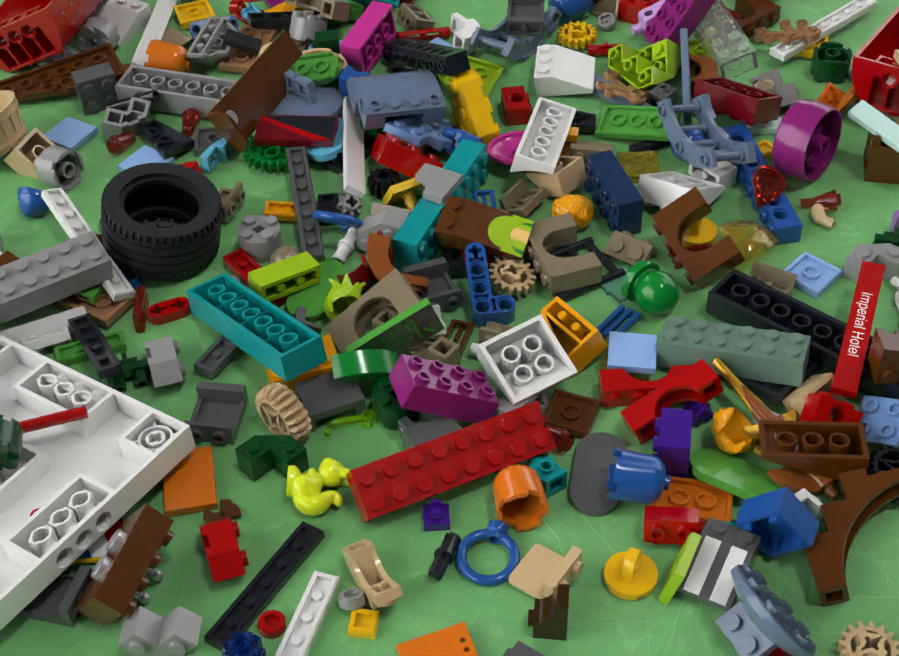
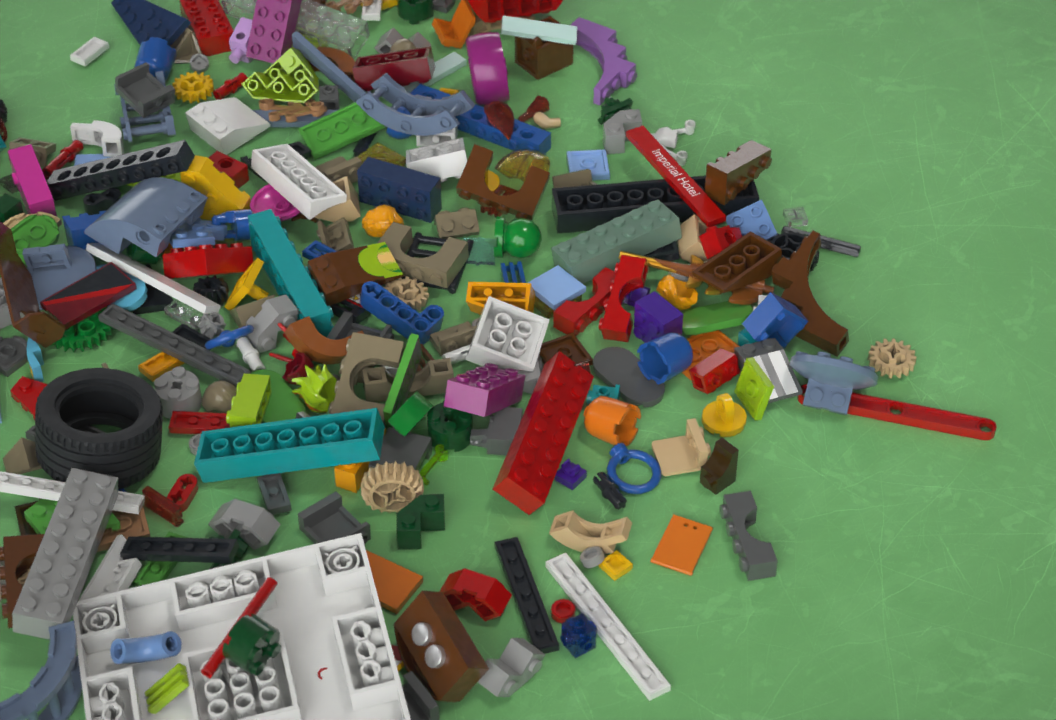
camera: 50 degrees left, 0 degrees up
(228, 509) = (435, 576): reddish brown piece -> none
(307, 487) = (470, 519): neon yellow animal -> none
(437, 182) = (281, 256): light grey tile -> none

